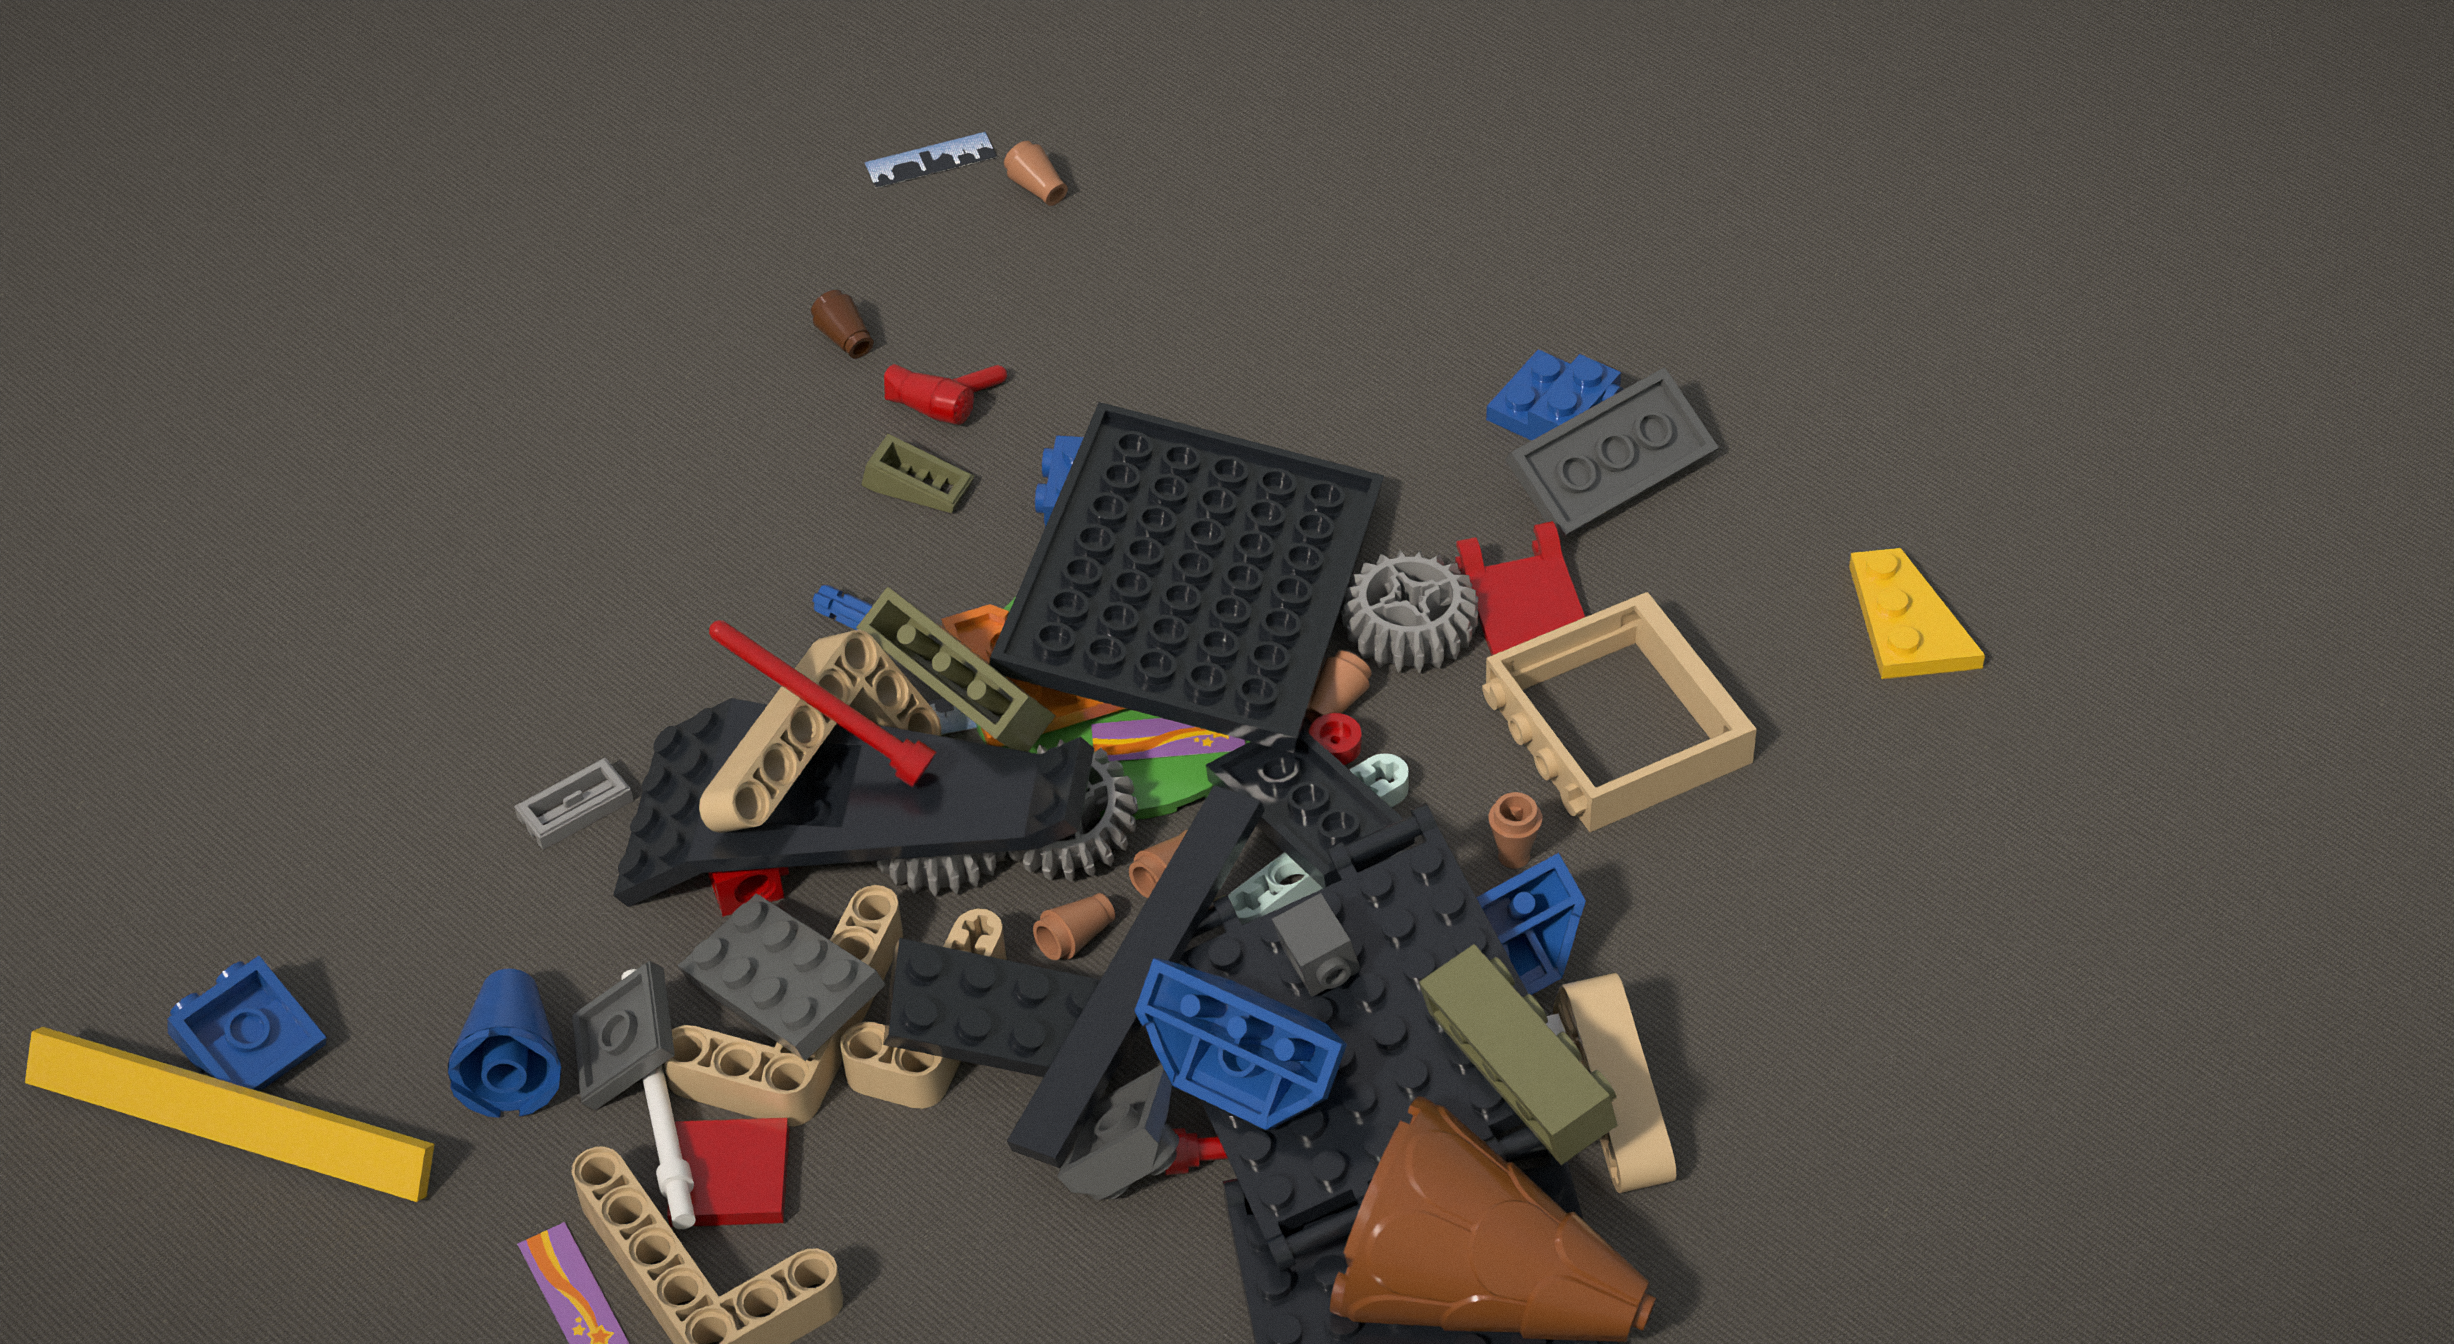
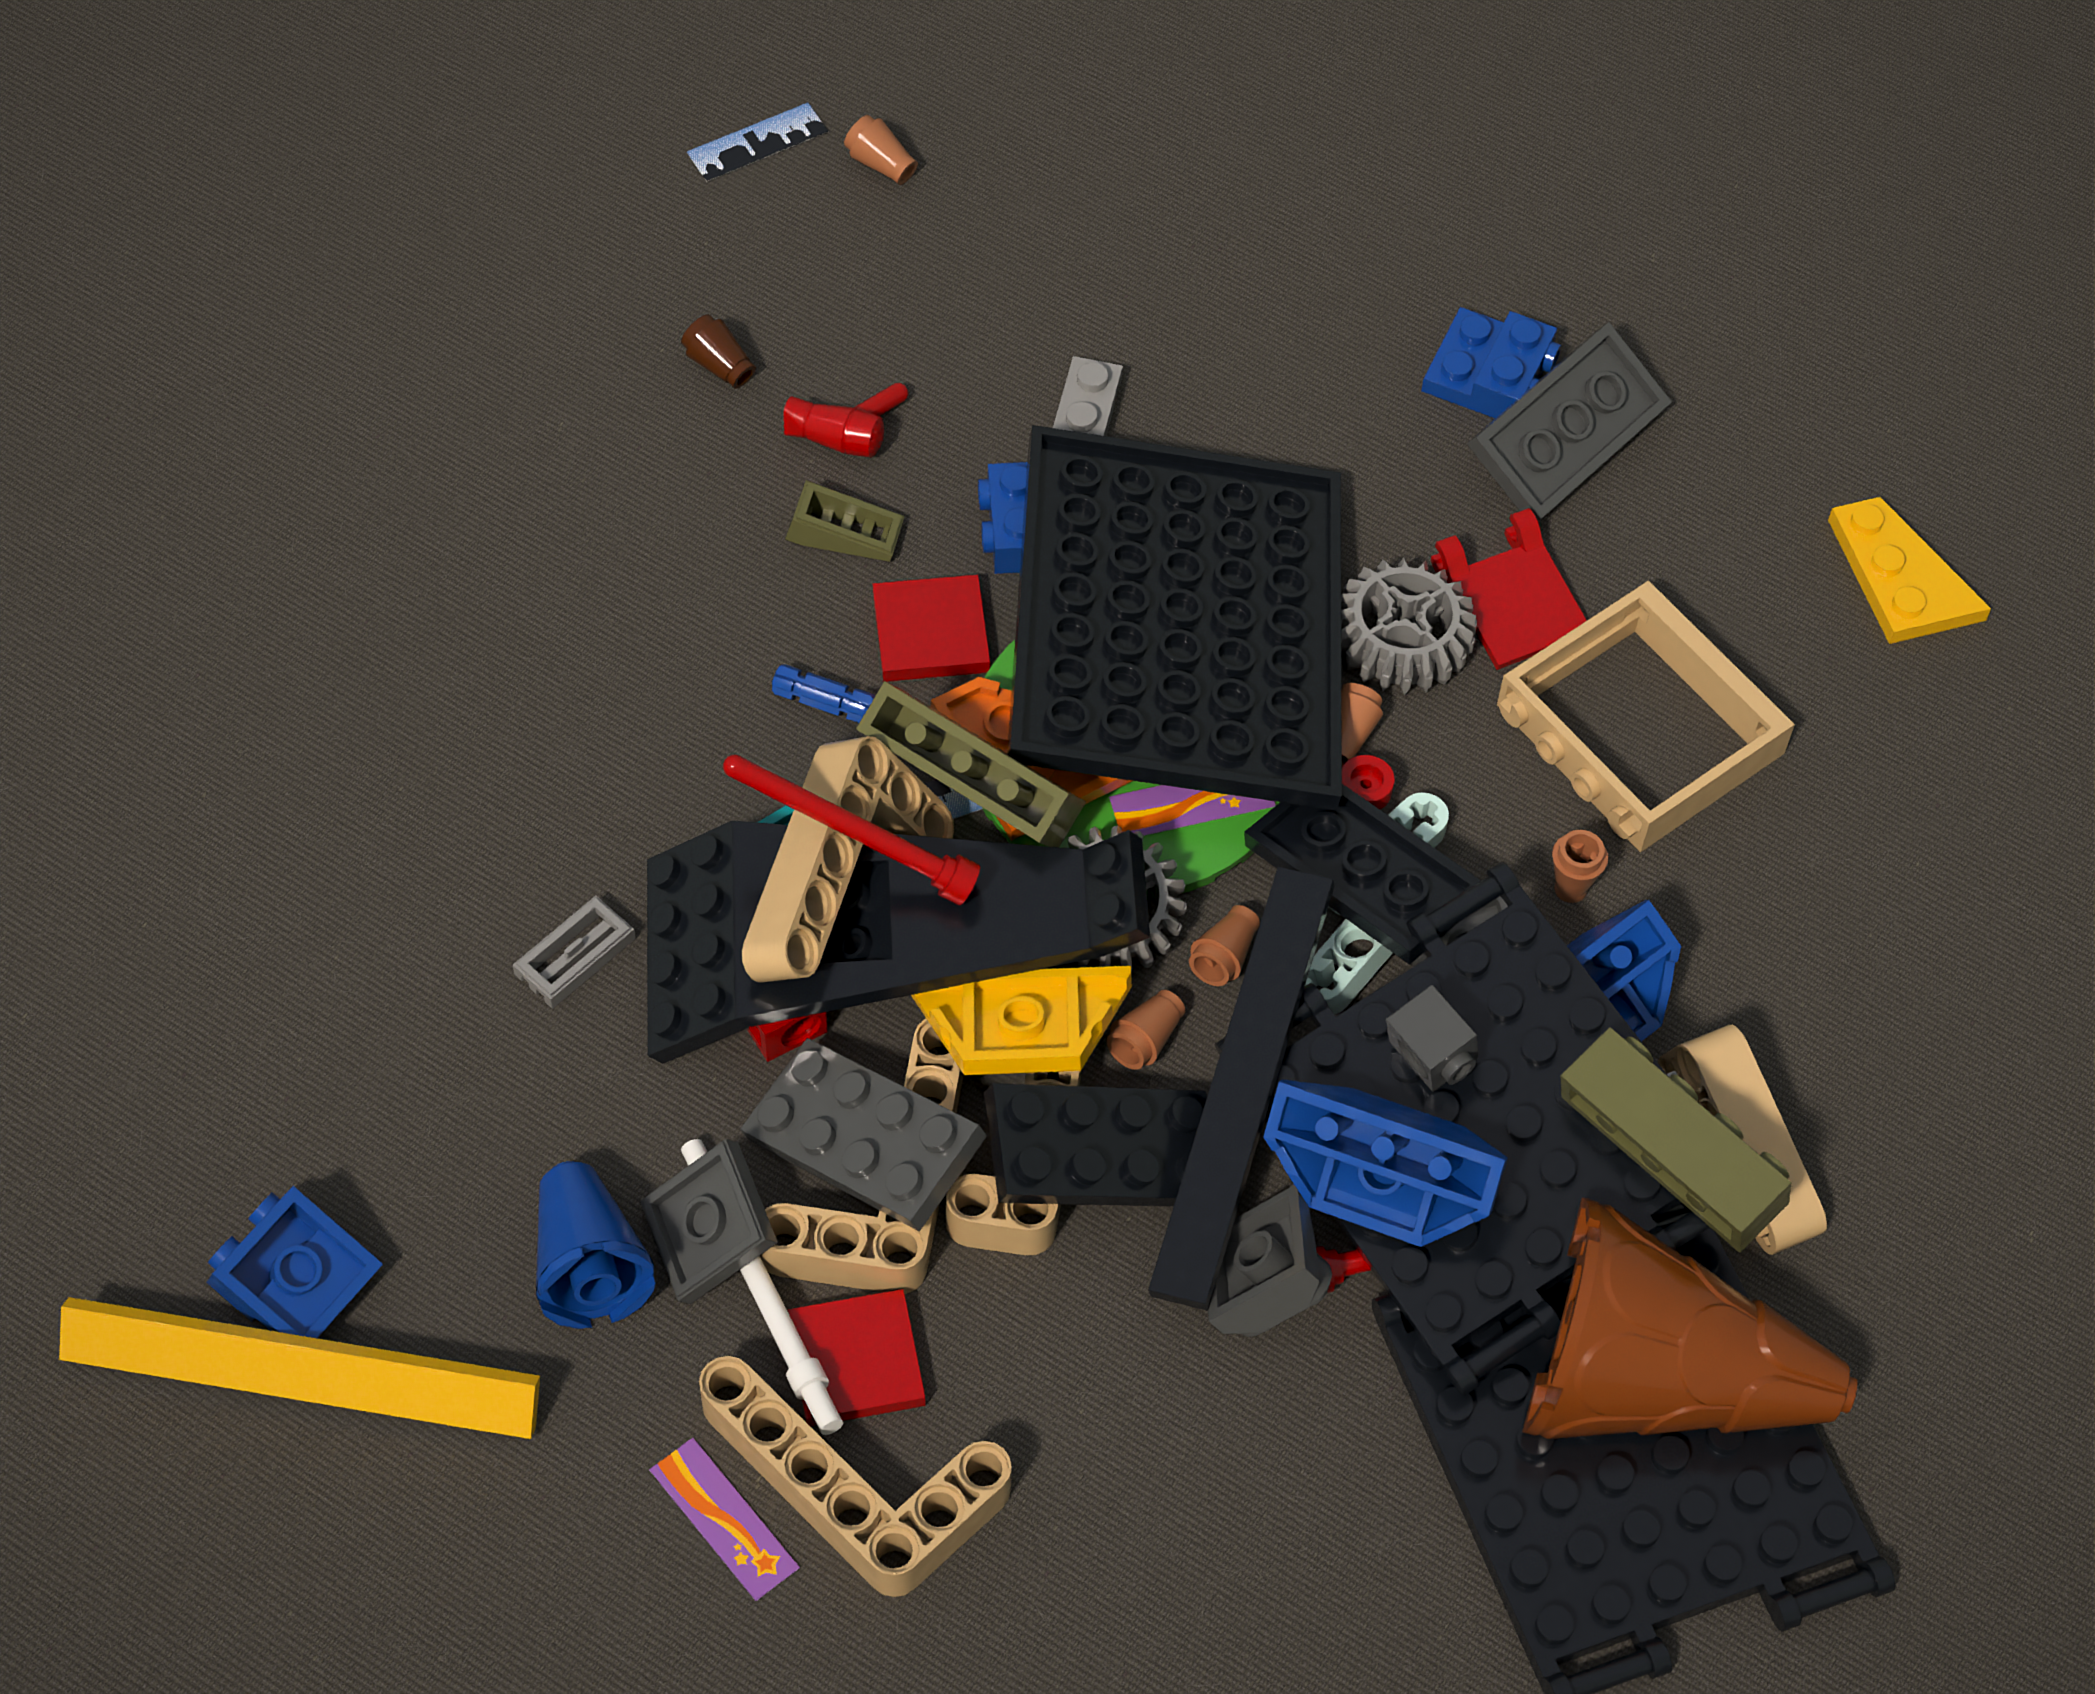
camera: 15 degrees left, 10 degrees up
(956, 894) = (1027, 1019): none -> yellow wing
(970, 568) = (931, 628): none -> red tile
(1173, 391) = (1089, 396): none -> light grey hinge

